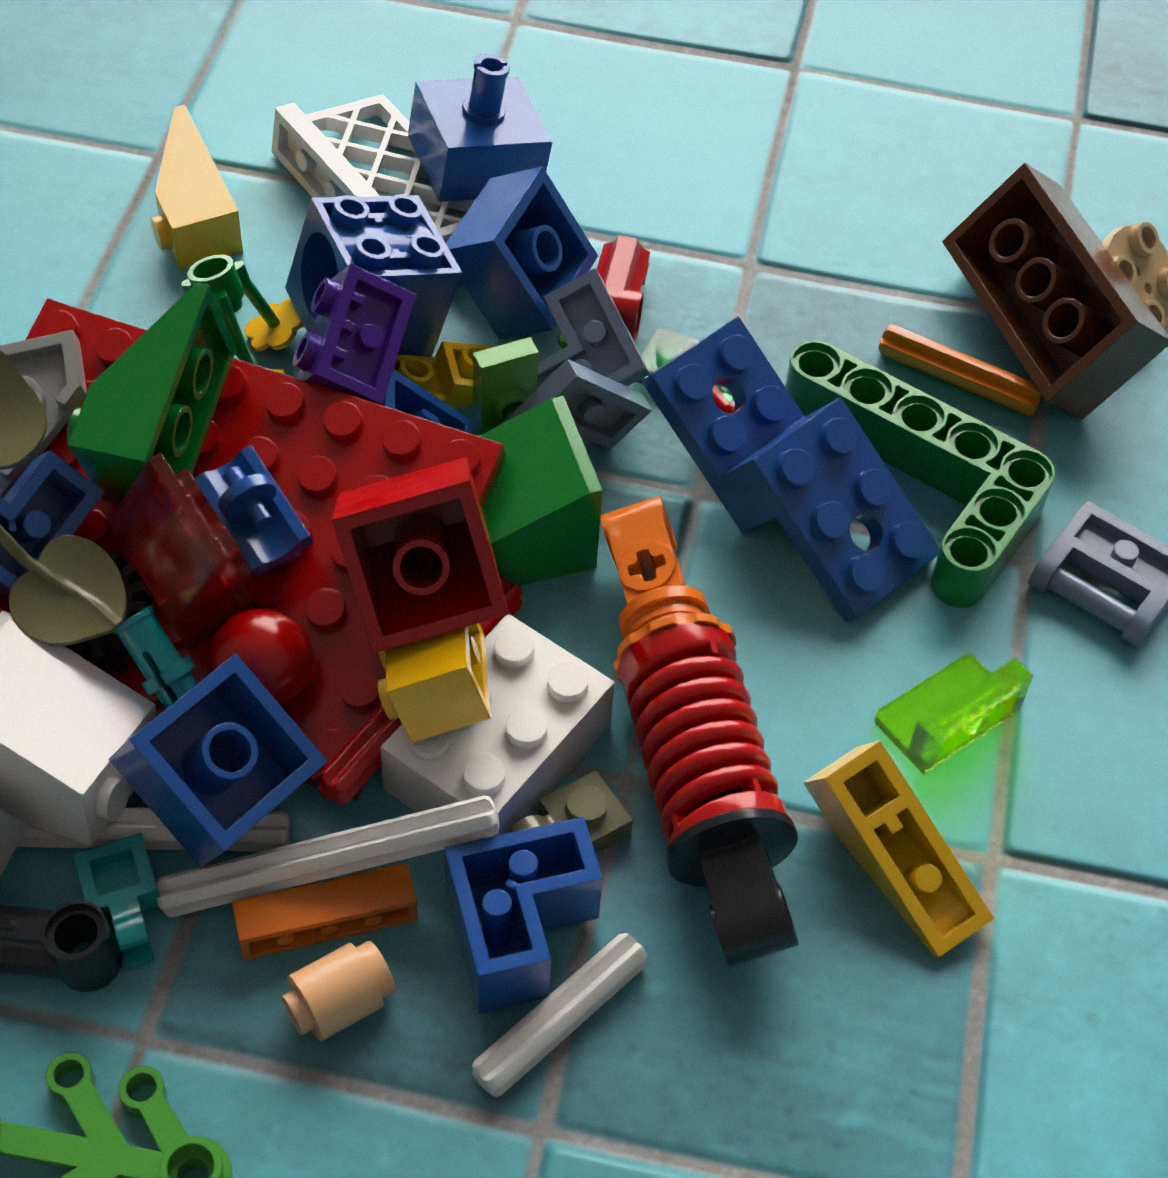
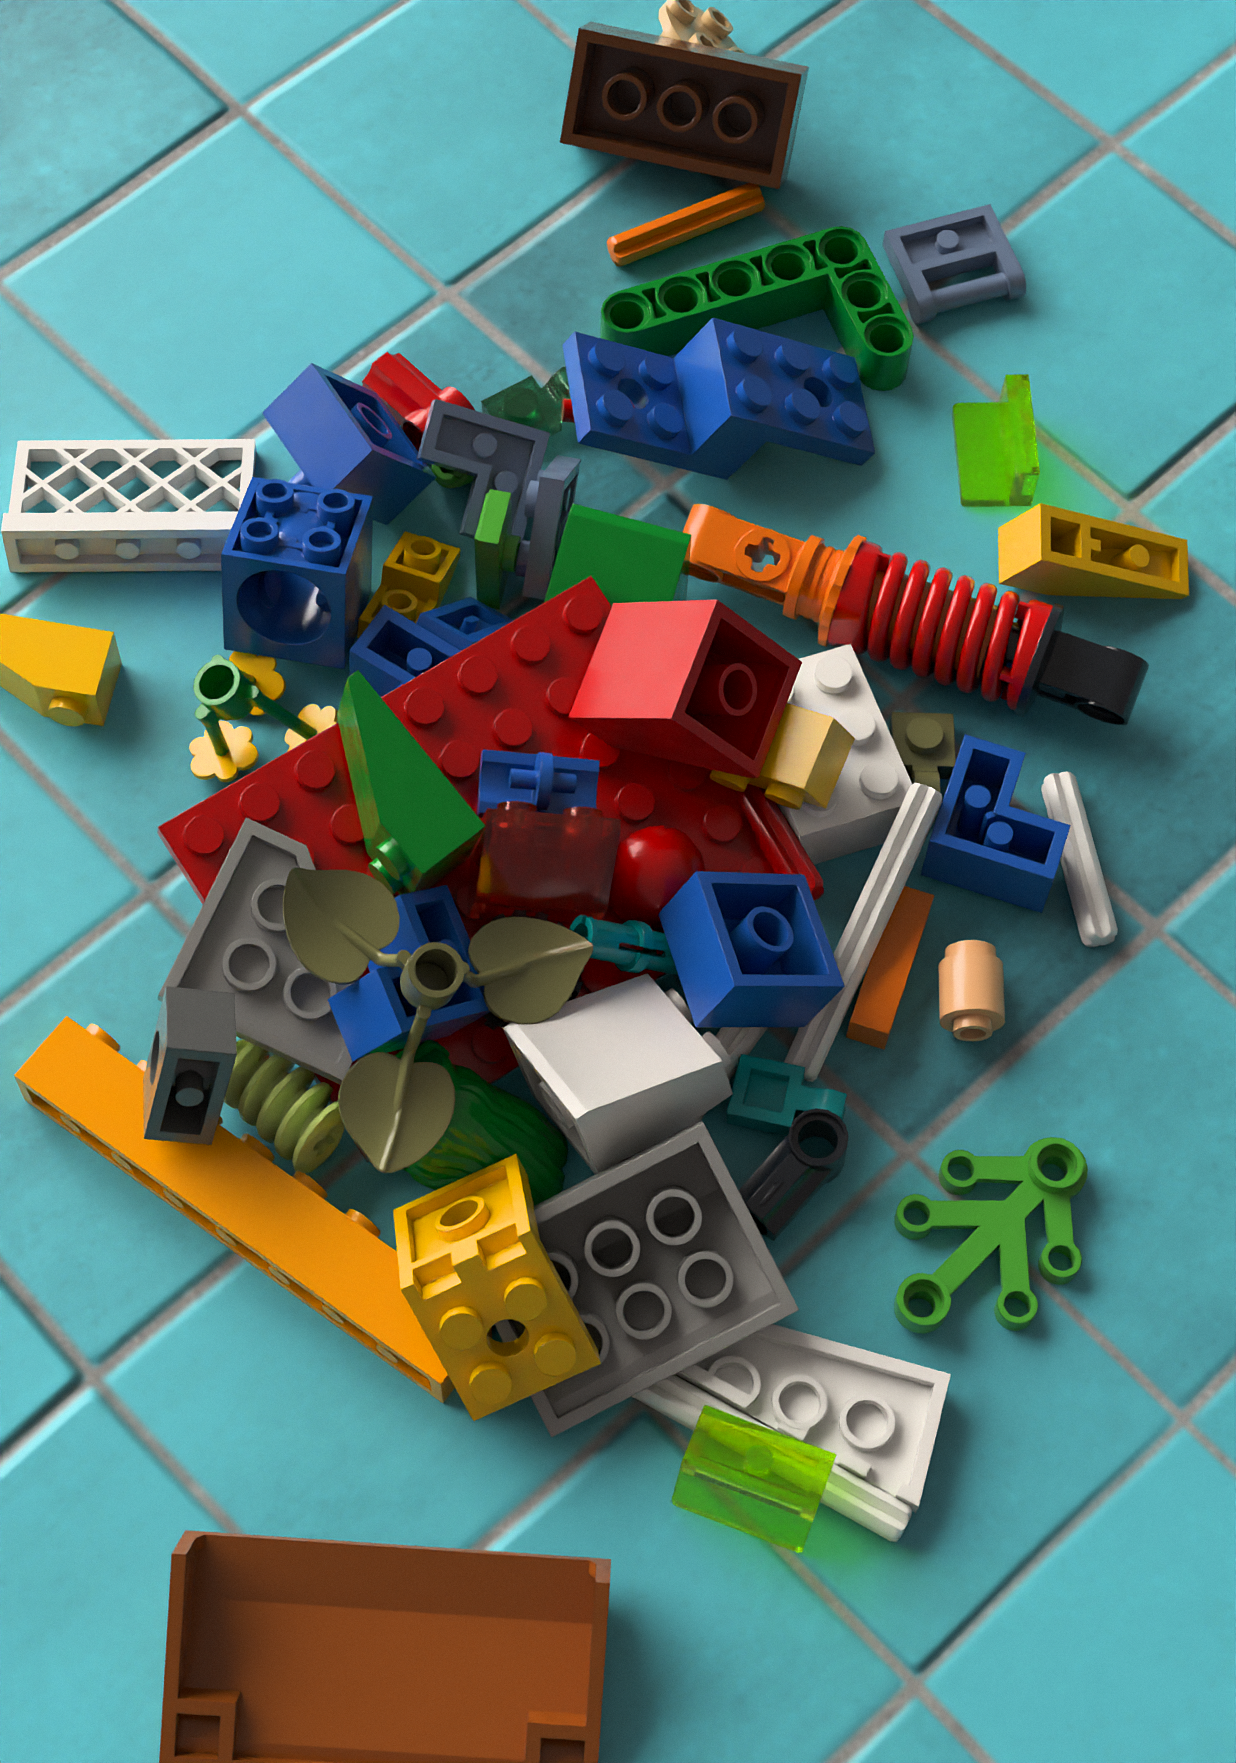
camera: 55 degrees left, 10 degrees up
(355, 334) = (392, 616): dark purple bracket -> none
(475, 129) = (163, 395): blue brick -> none

